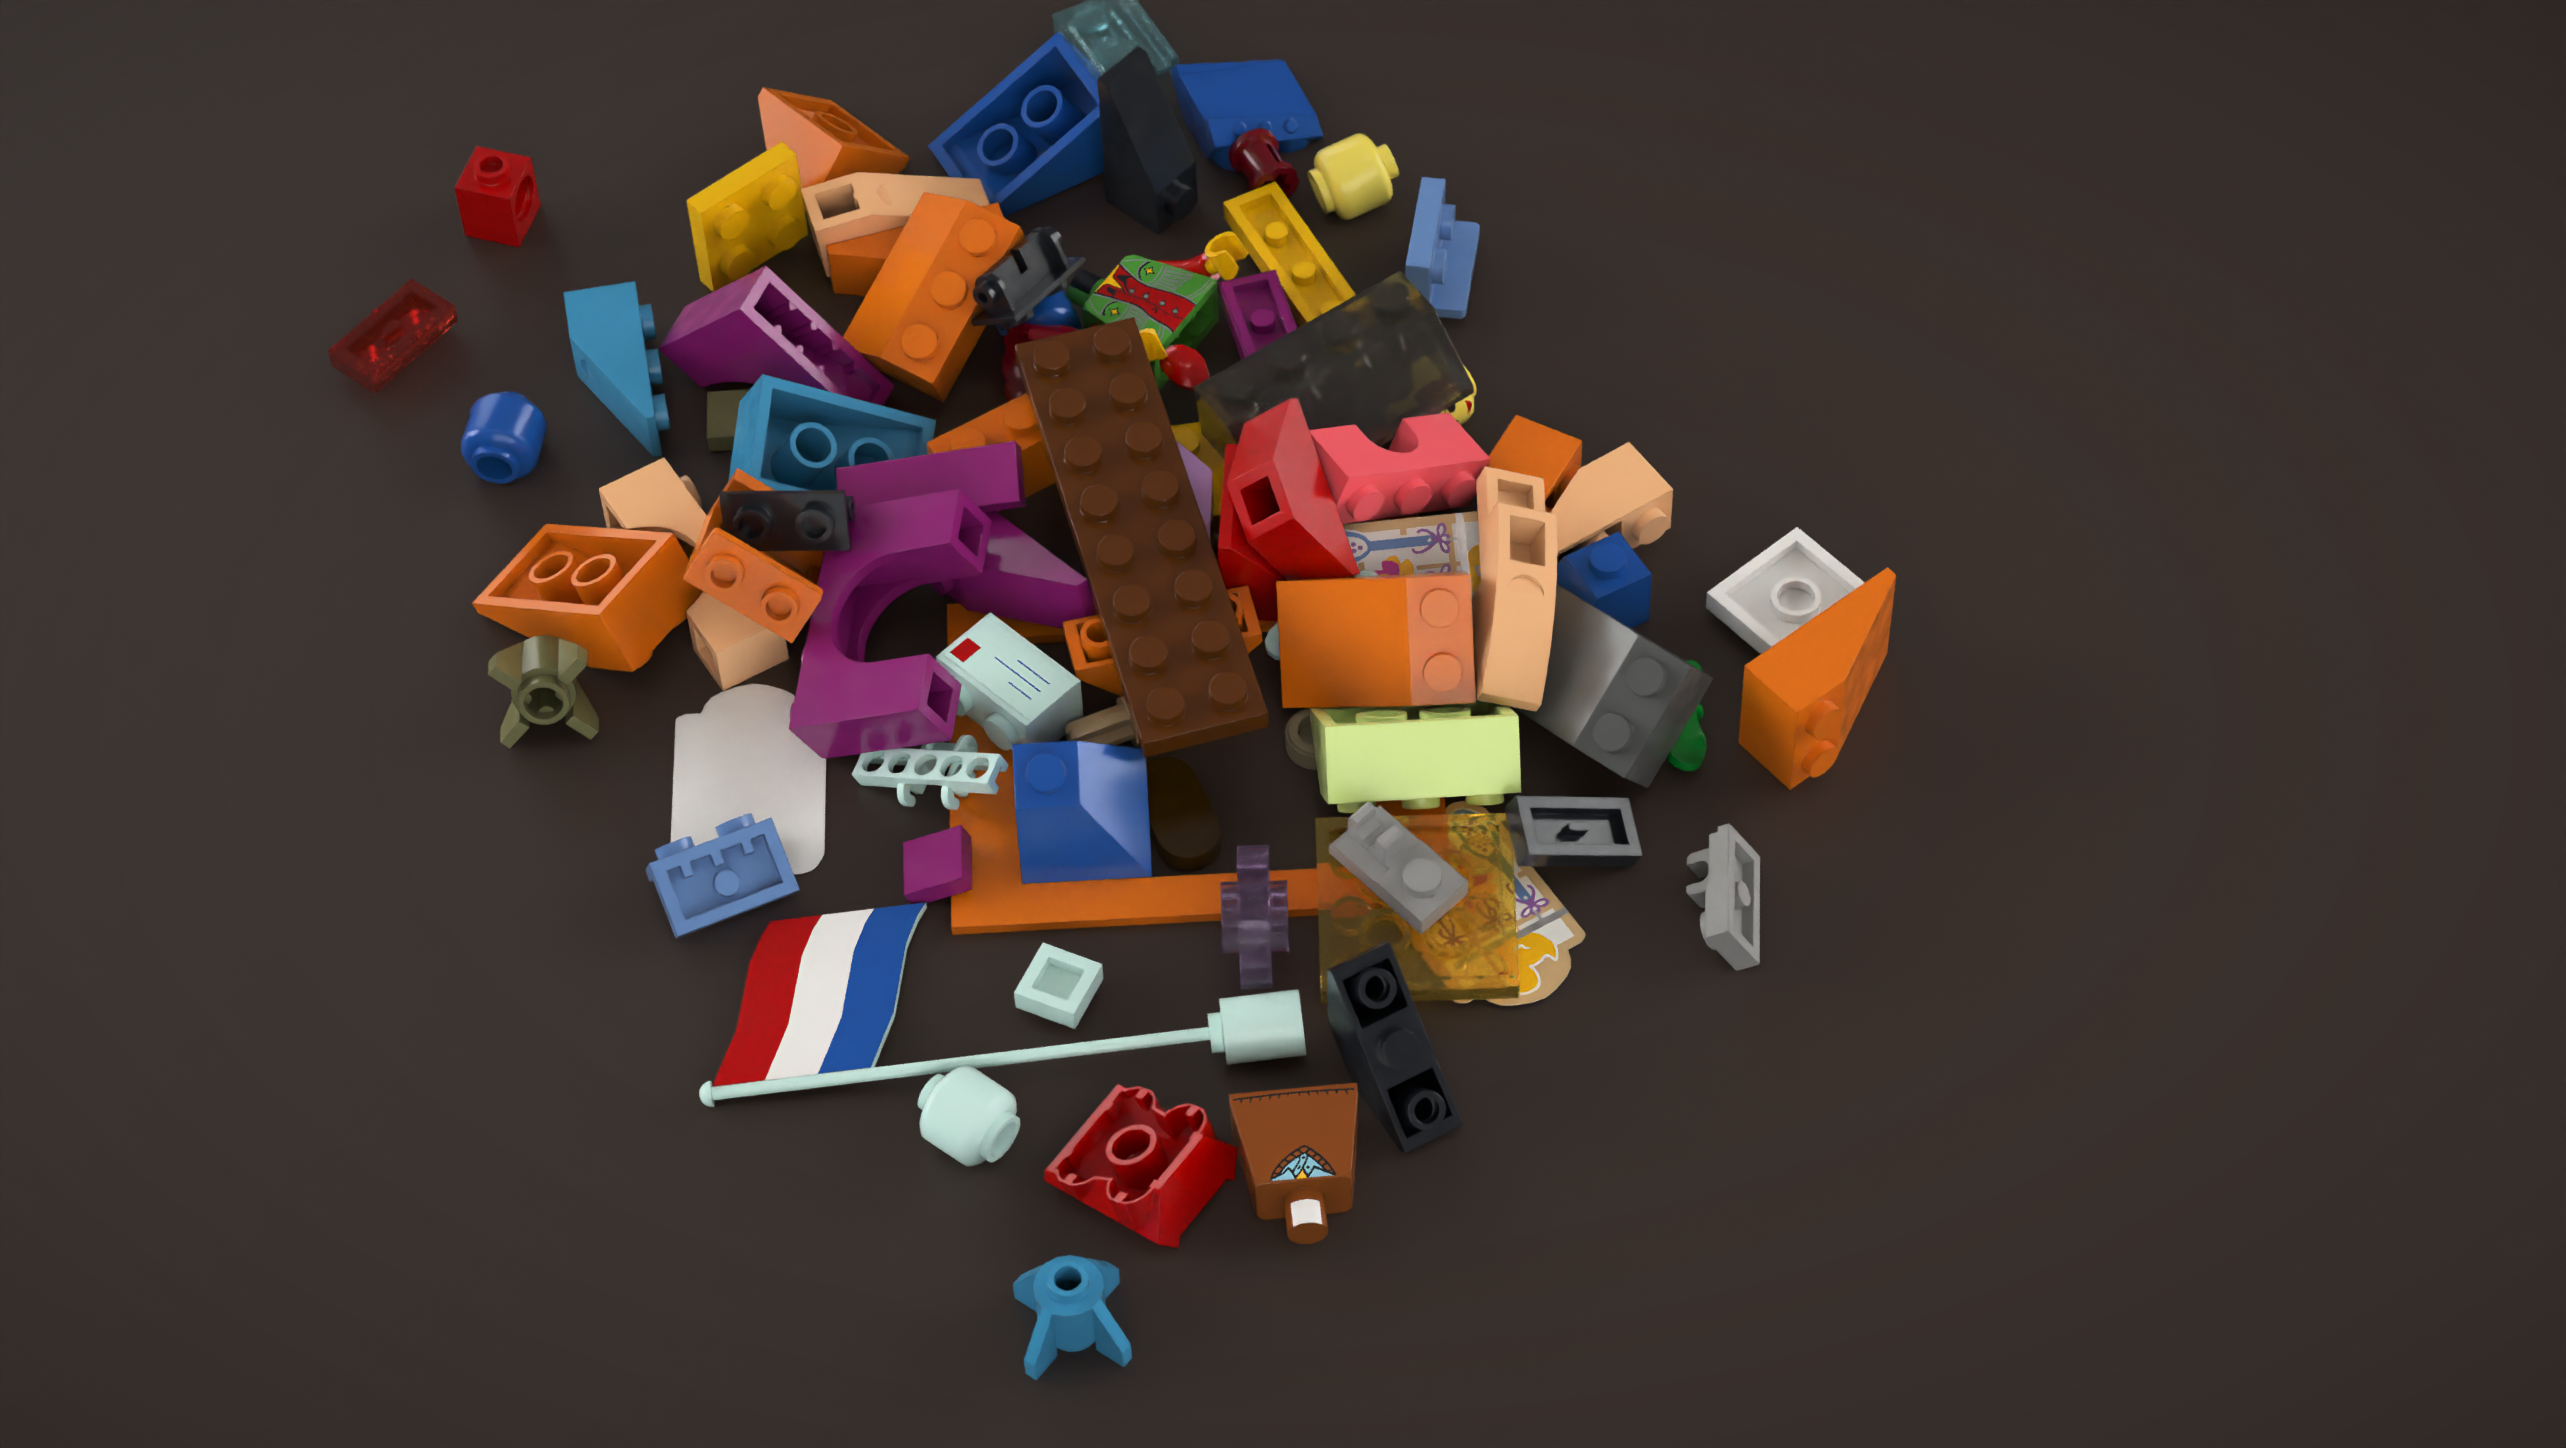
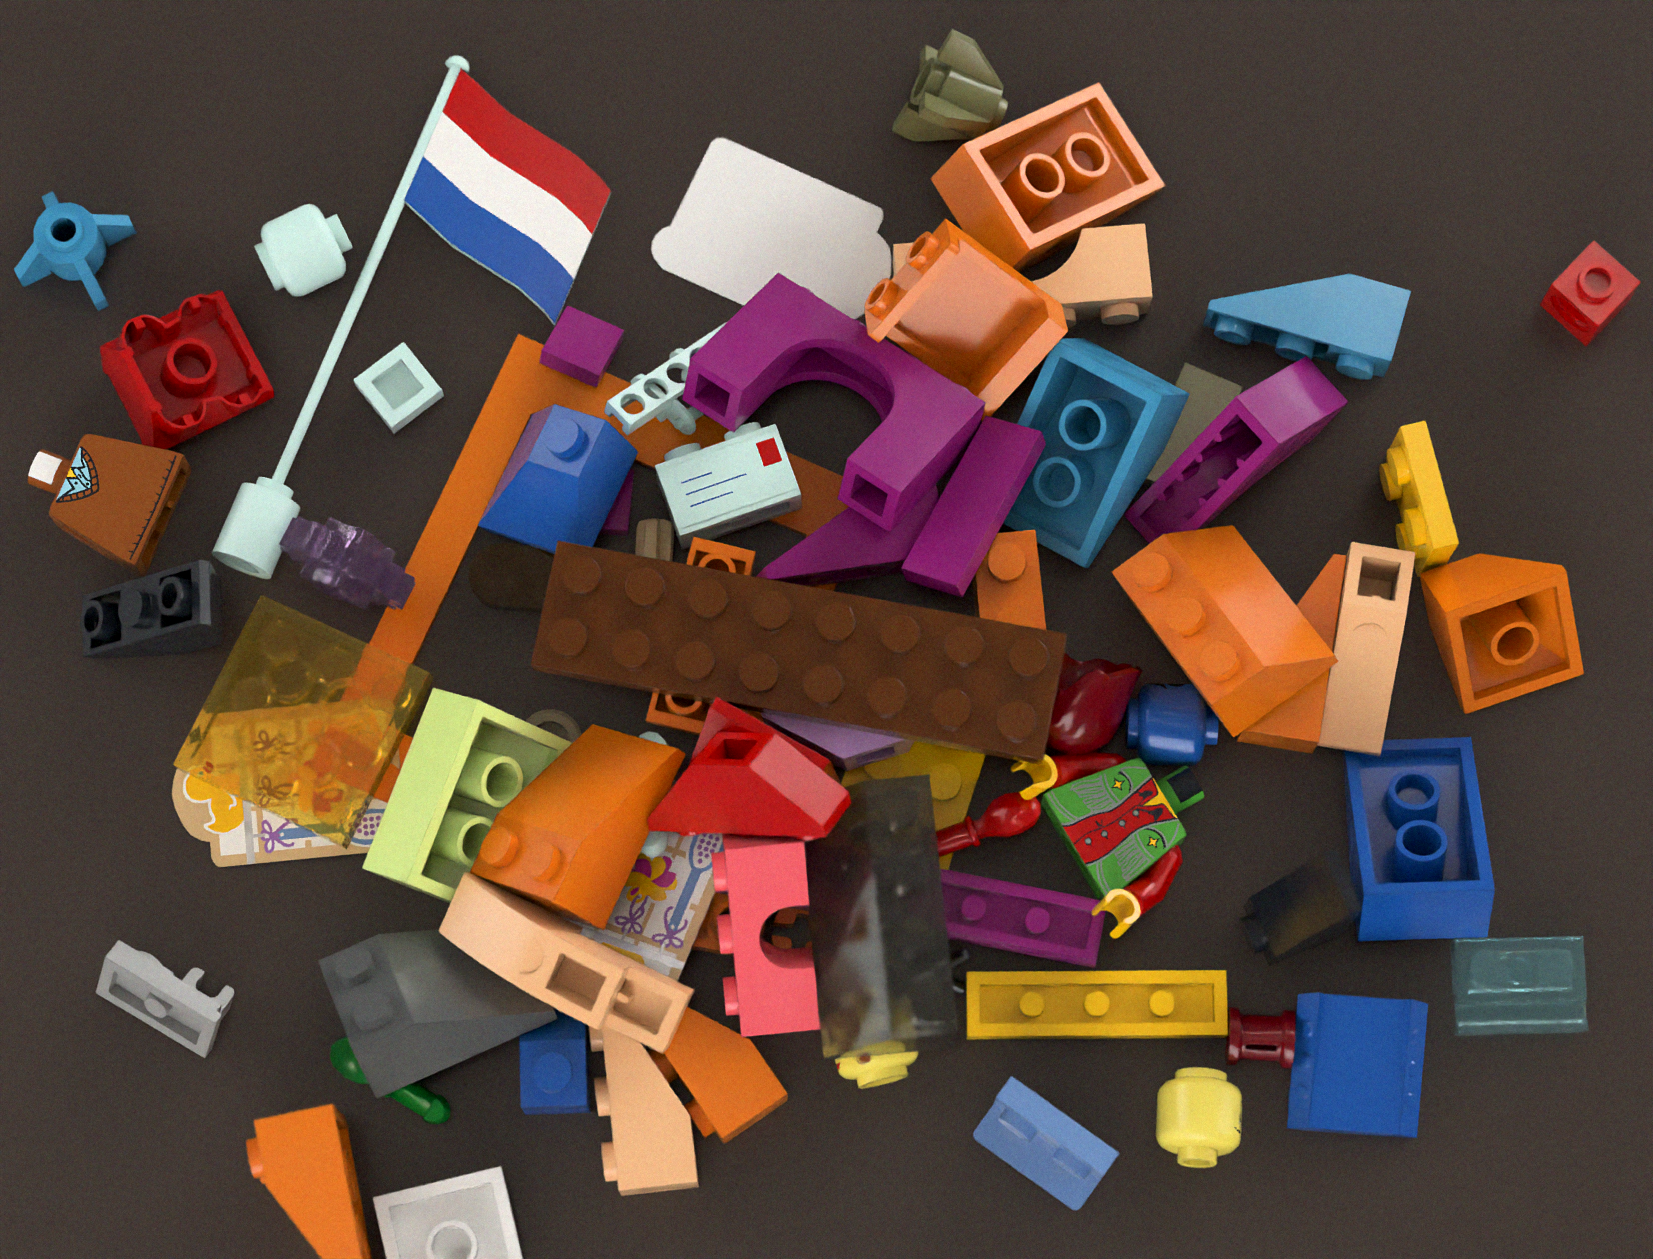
camera: 115 degrees right, 25 degrees up
(393, 336) = (1463, 135): clear red plate -> none
(503, 437) = (1280, 182): blue head -> none
(721, 876) = (671, 161): medium blue bracket -> none
(789, 519) = (962, 364): black hinge -> none
(1012, 292) = (1154, 683): black hinge -> none
(1398, 867) = (333, 713): light grey plate -> none
(1573, 831) = (300, 894): plate -> none

